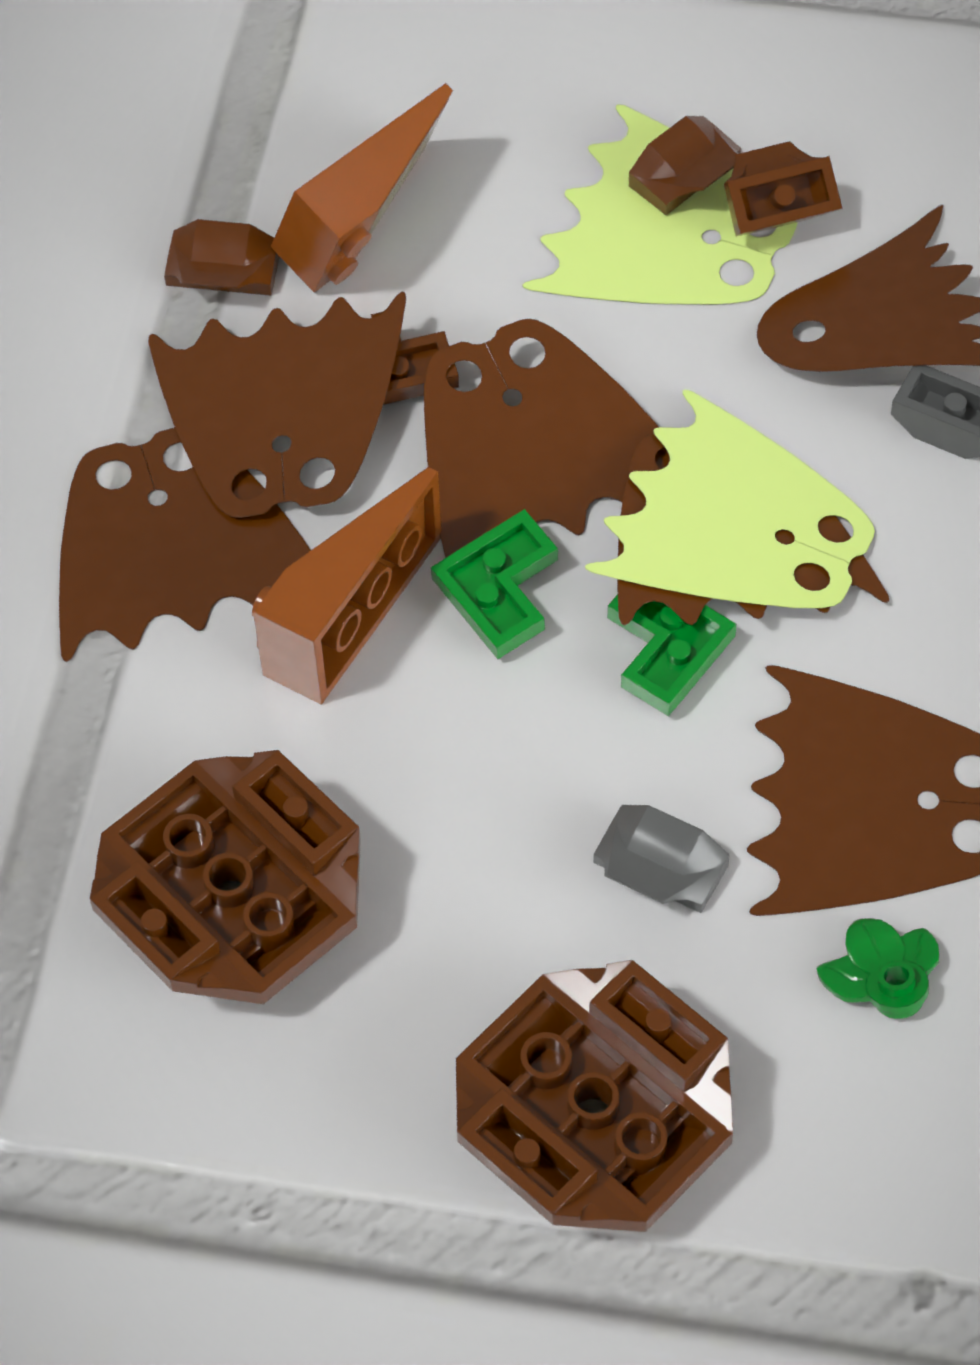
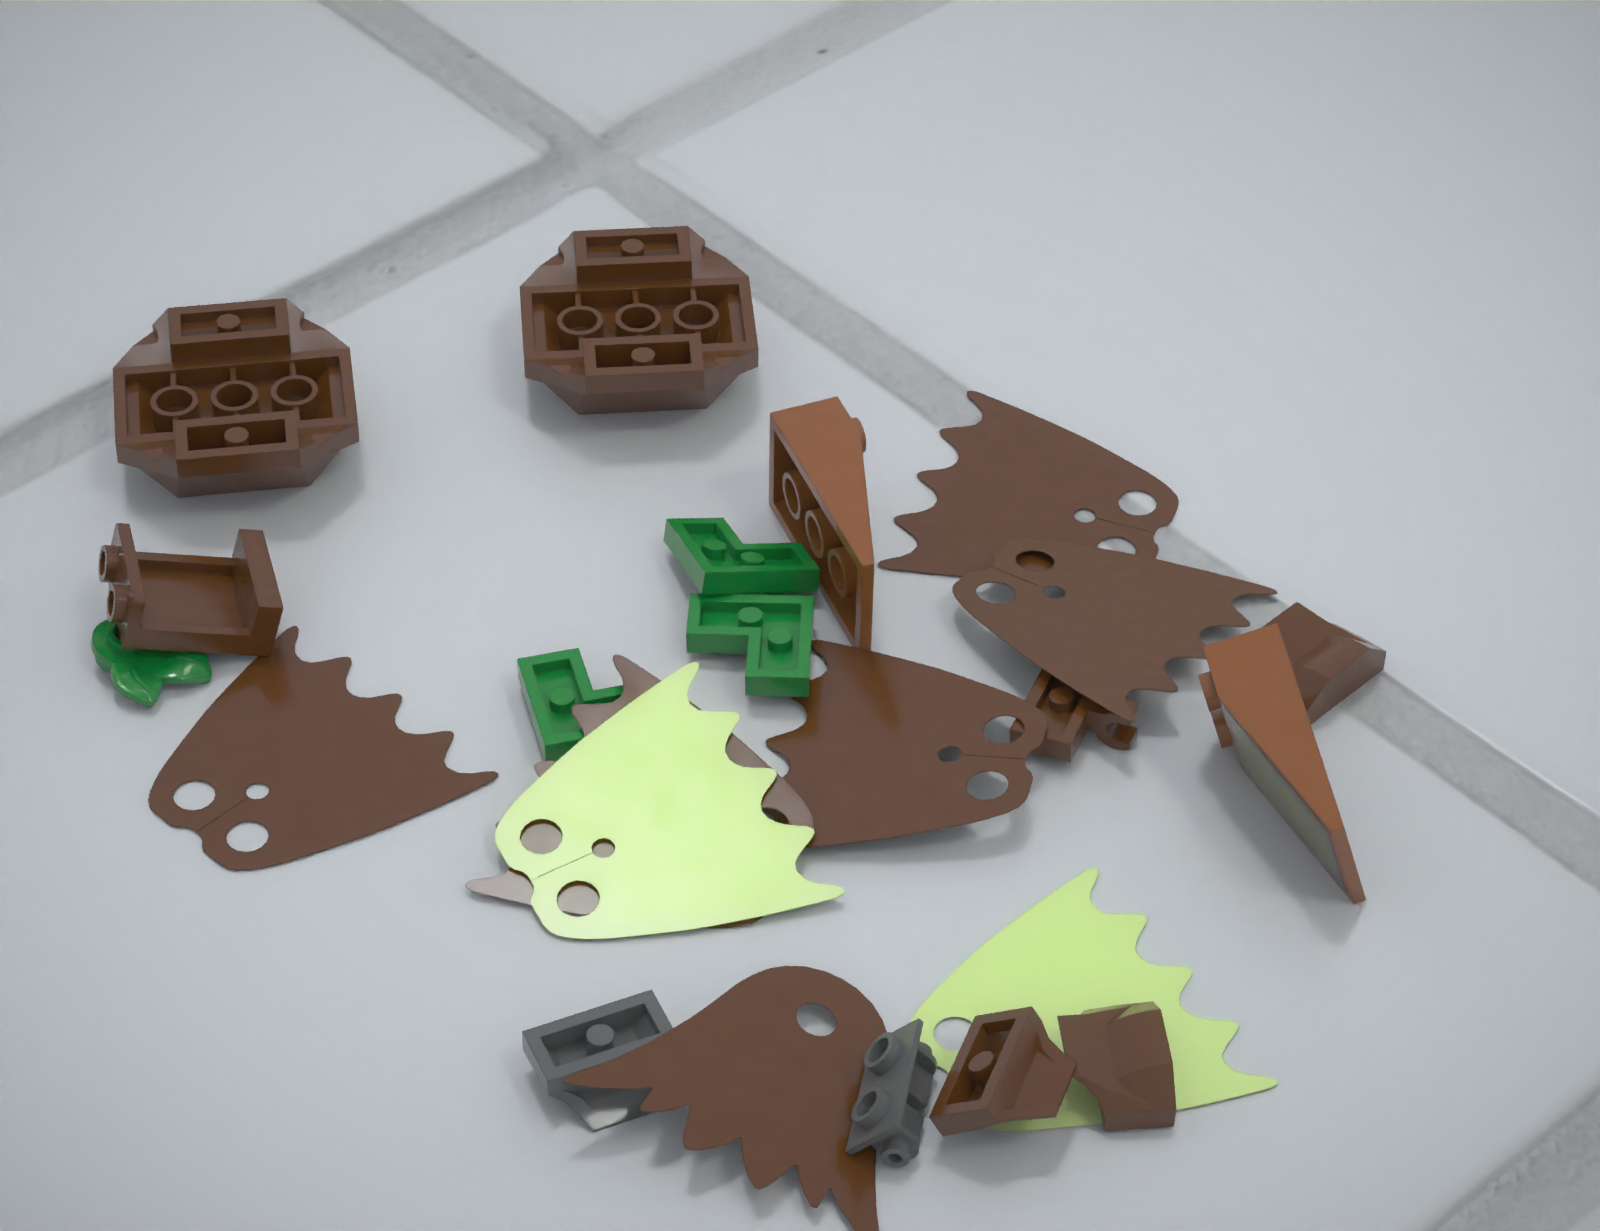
camera: 125 degrees right, 15 degrees down
(443, 646) = (724, 565): none -> green plate
(661, 856) = (392, 582): dark grey slope -> none
(815, 960) = (192, 599): none -> reddish brown panel
(833, 250) = (891, 1093): none -> dark grey hinge

